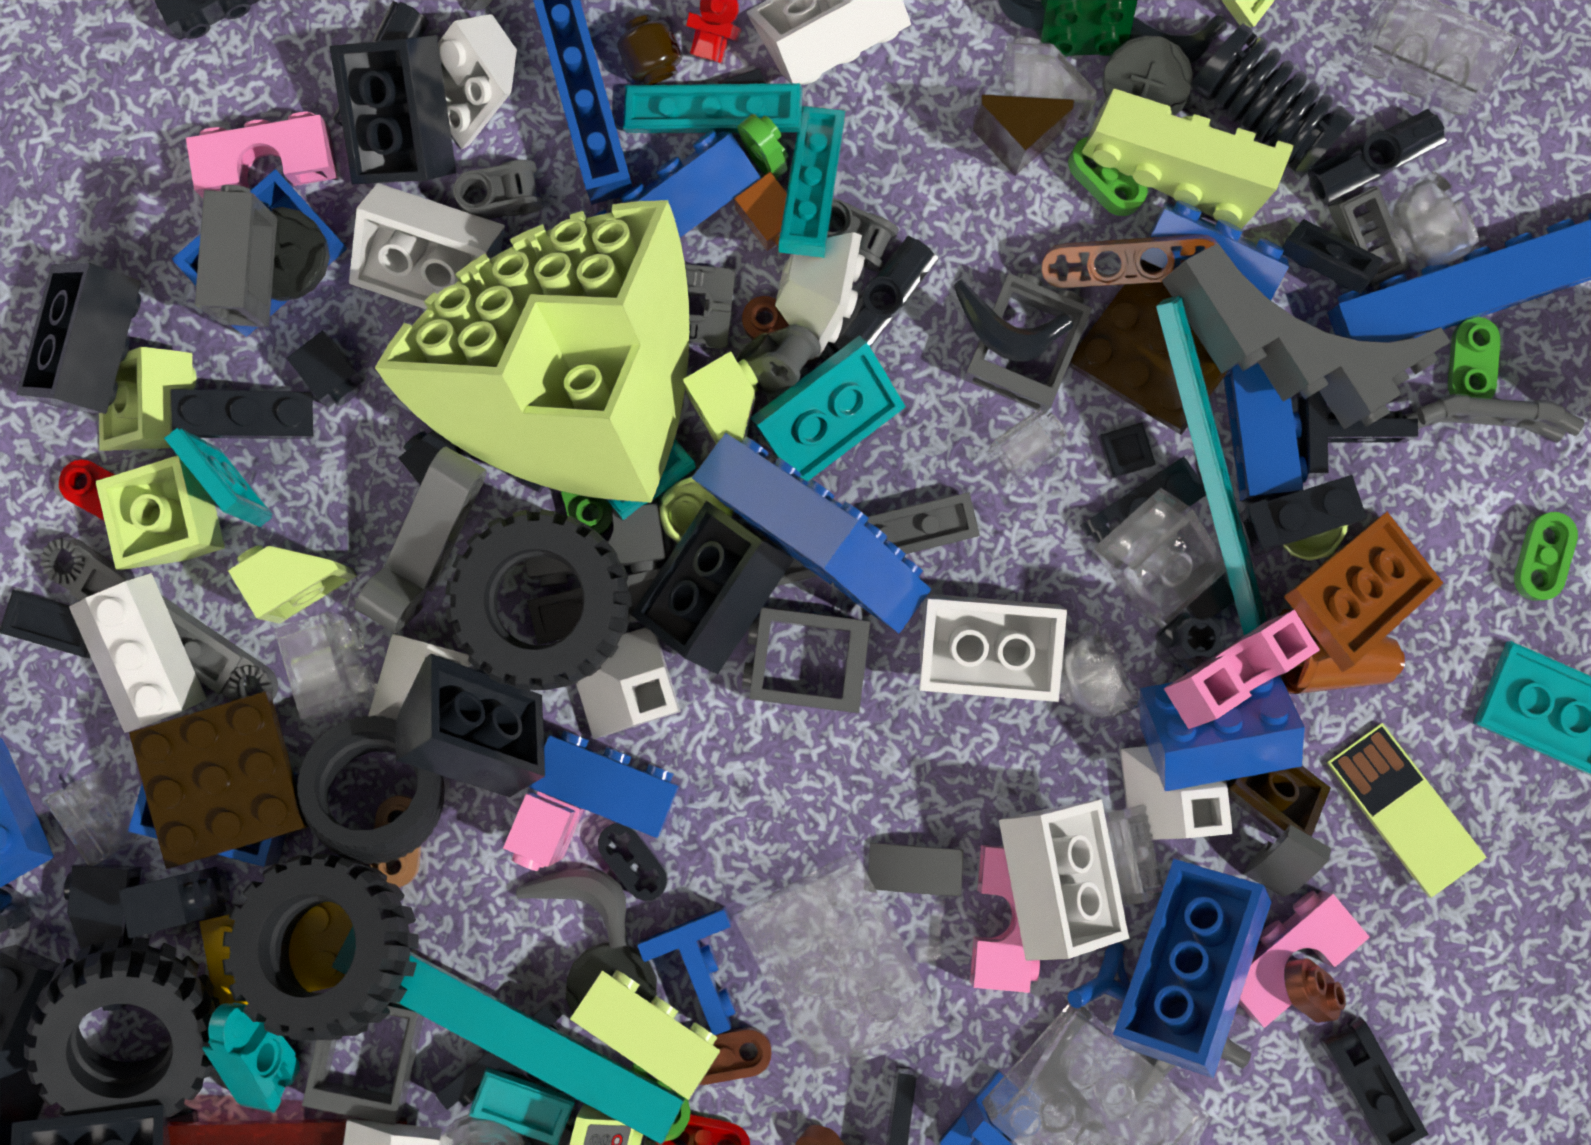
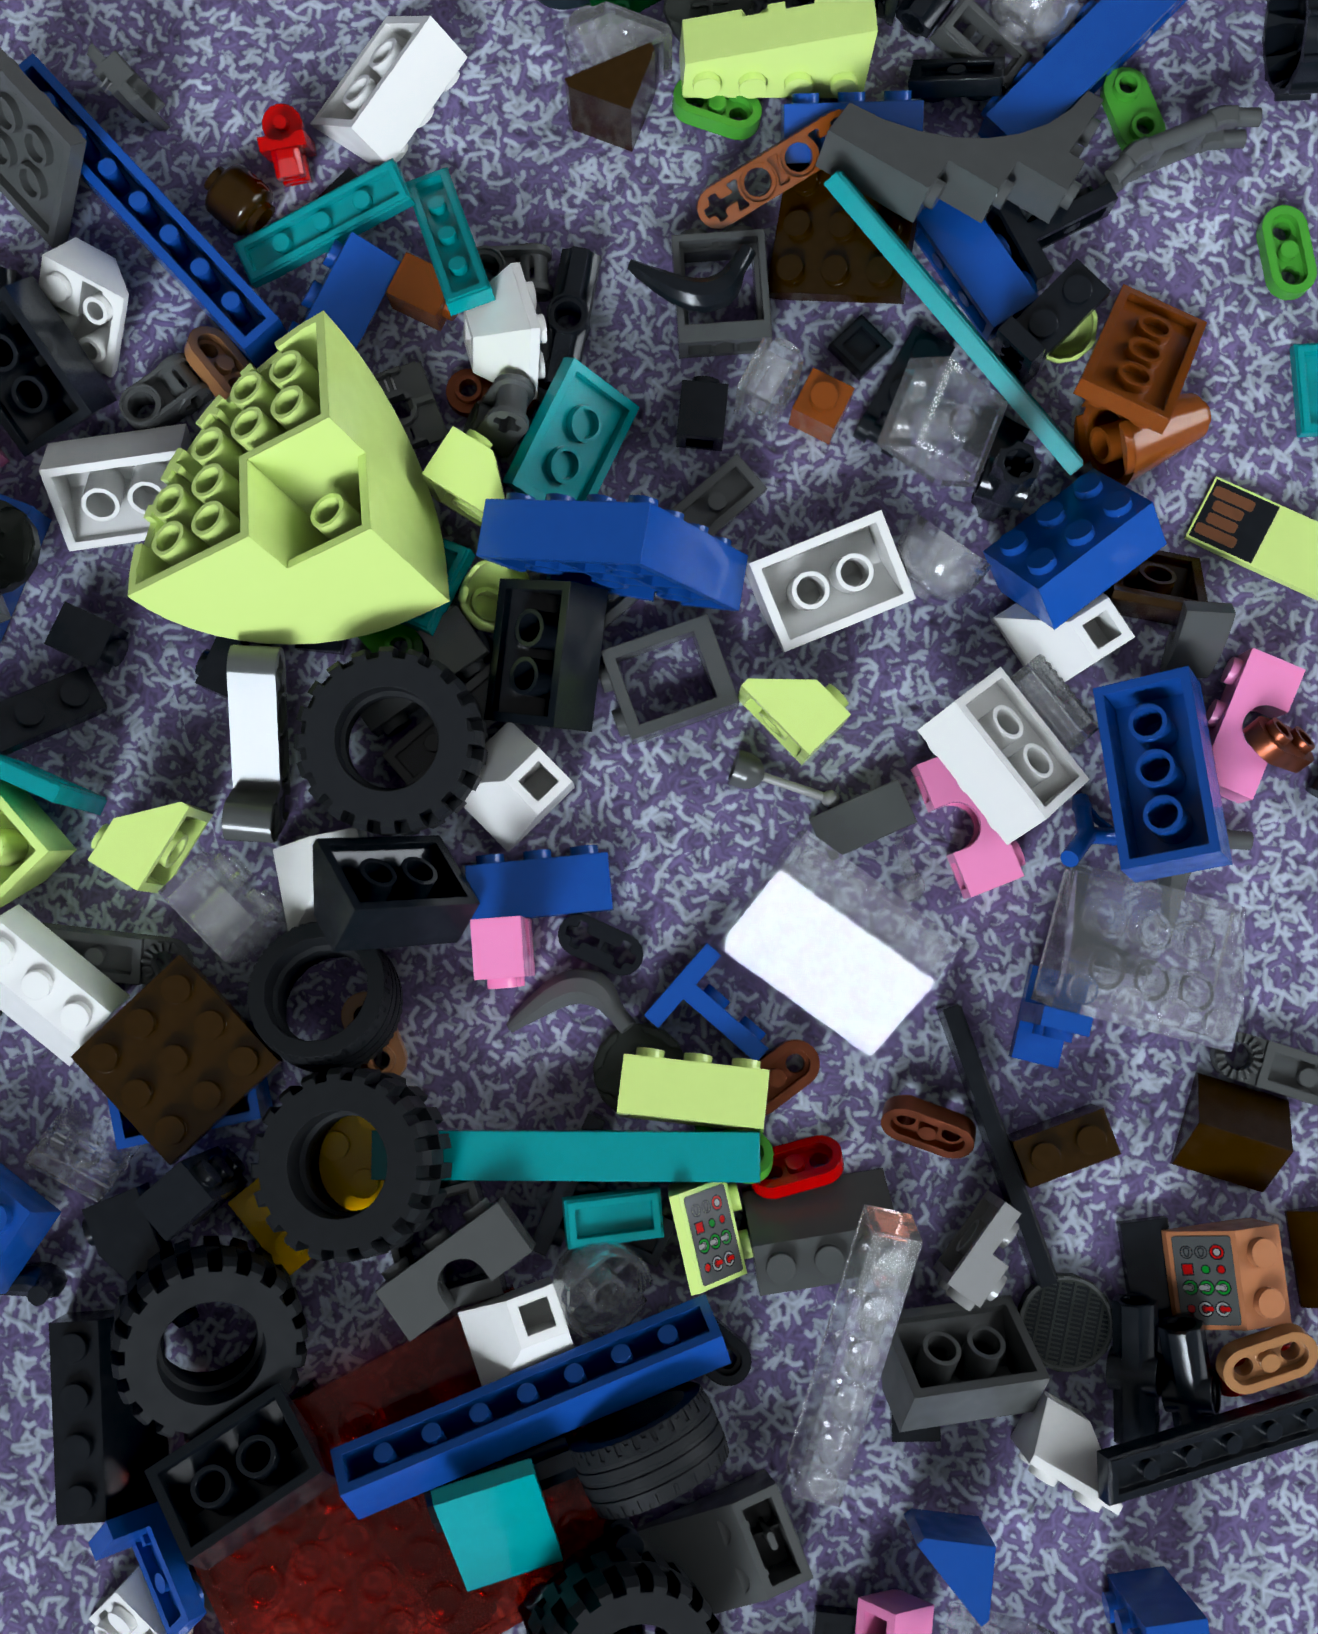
camera: 20 degrees left, 0 degrees up
(249, 1058) = (336, 1300): teal piece -> none
(405, 1071) = (417, 1289): none -> dark grey arch
(561, 193) = (225, 363): none -> medium nougat plate
(761, 144) = (386, 229): bright green plate -> none
(838, 777) = (750, 772): none -> hinge
(905, 750) = (796, 712): none -> yellowish green slope
(957, 440) = (702, 413): none -> black brick
(1064, 487) = (821, 405): none -> dark orange brick
(1235, 671) = (1068, 478): bright pink arch -> none

